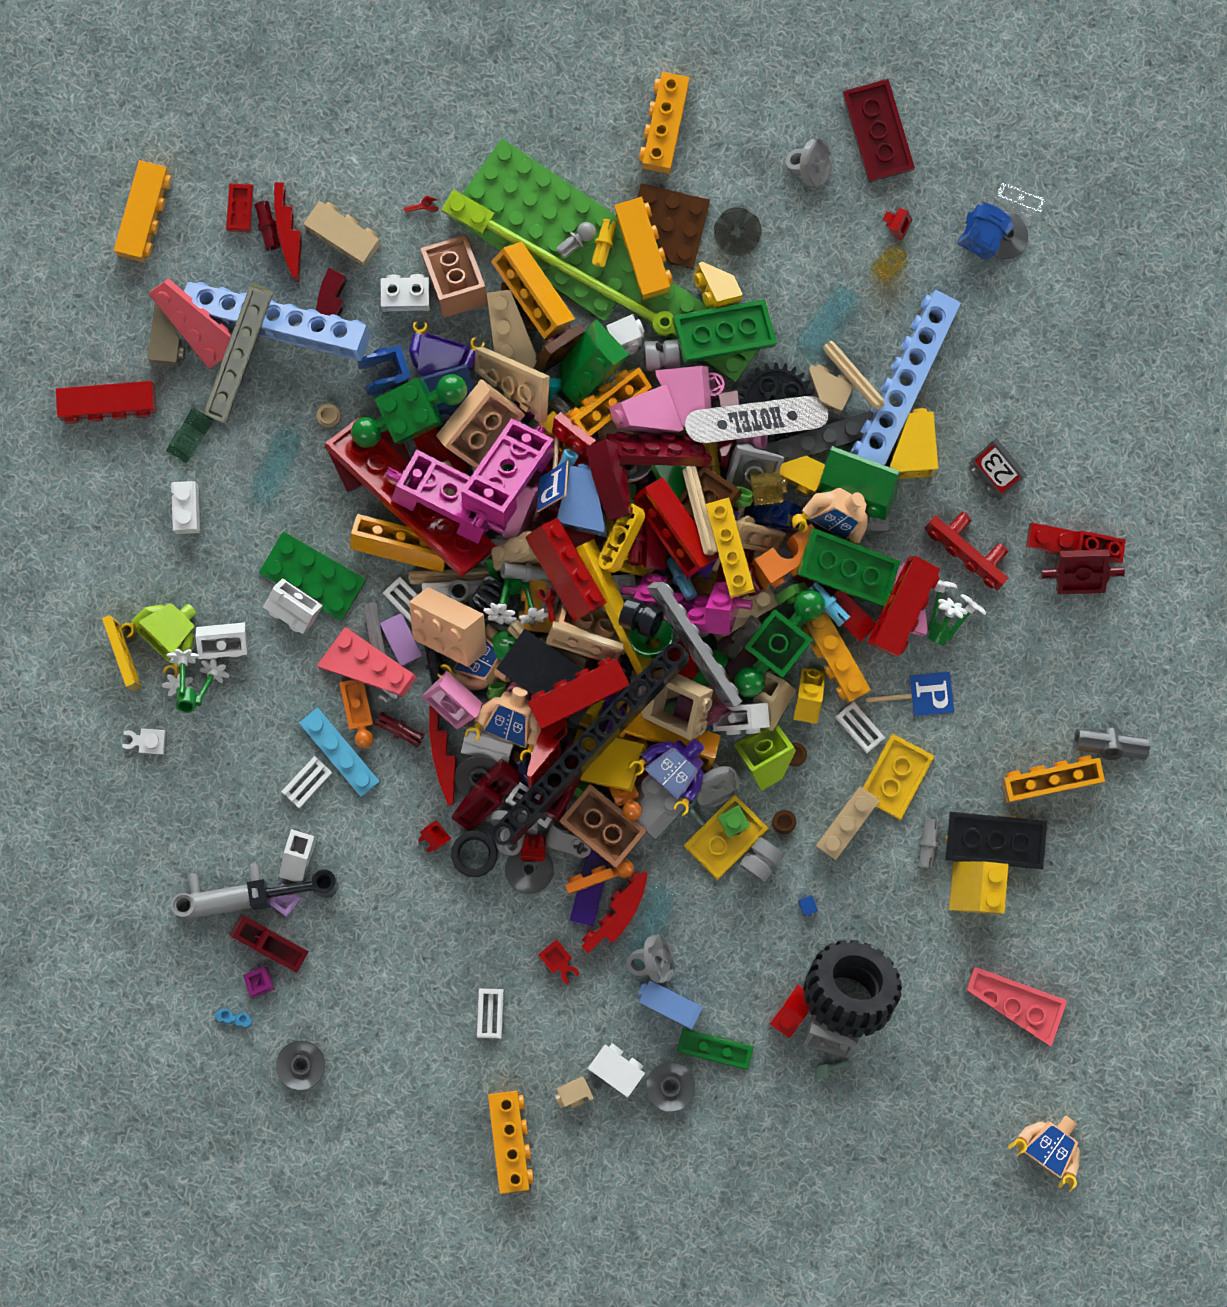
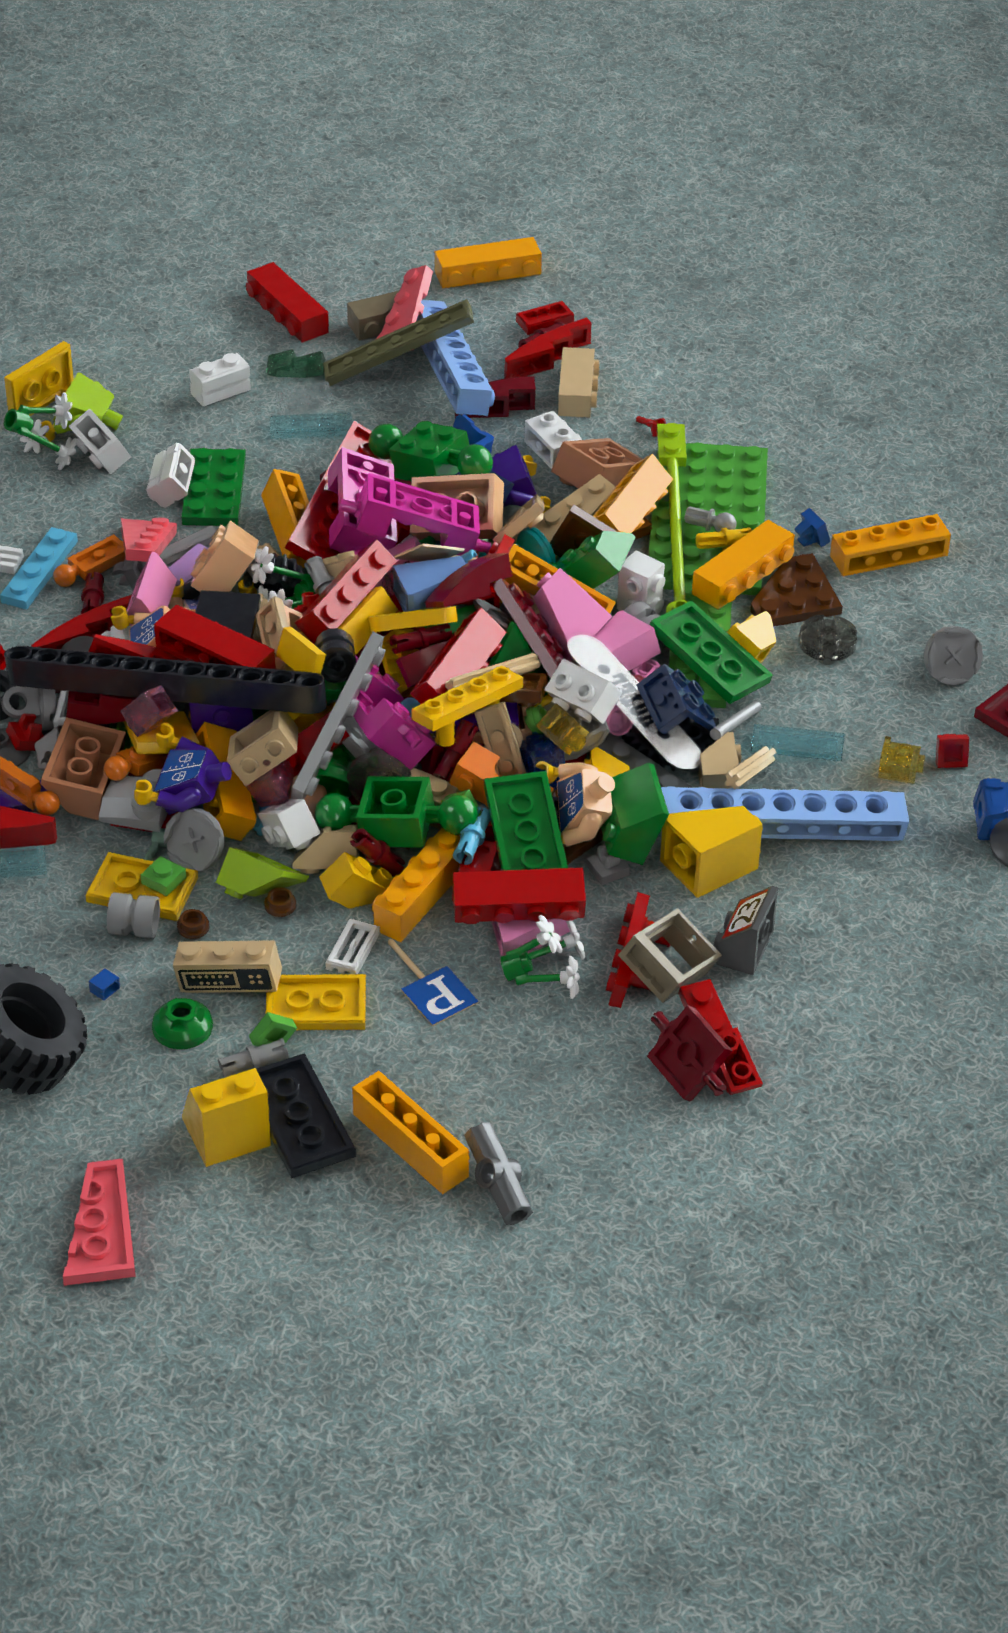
camera: 60 degrees right, 40 degrees down
(609, 768) = (148, 711): none -> clear pink brick
(616, 166) = (812, 529): none -> blue tile
(635, 643) = (299, 652): none -> yellow tile
(753, 459) = (582, 691): none -> white brick
(775, 391) = (673, 699): none -> dark blue bracket
(792, 352) = (735, 720): none -> light grey bar
(800, 673) = (377, 852): none -> dark red pin
(855, 871) = (182, 1031): none -> green piece
(918, 821) = (272, 1028): none -> bright green plate
(1004, 557) = (653, 965): none -> dark tan window

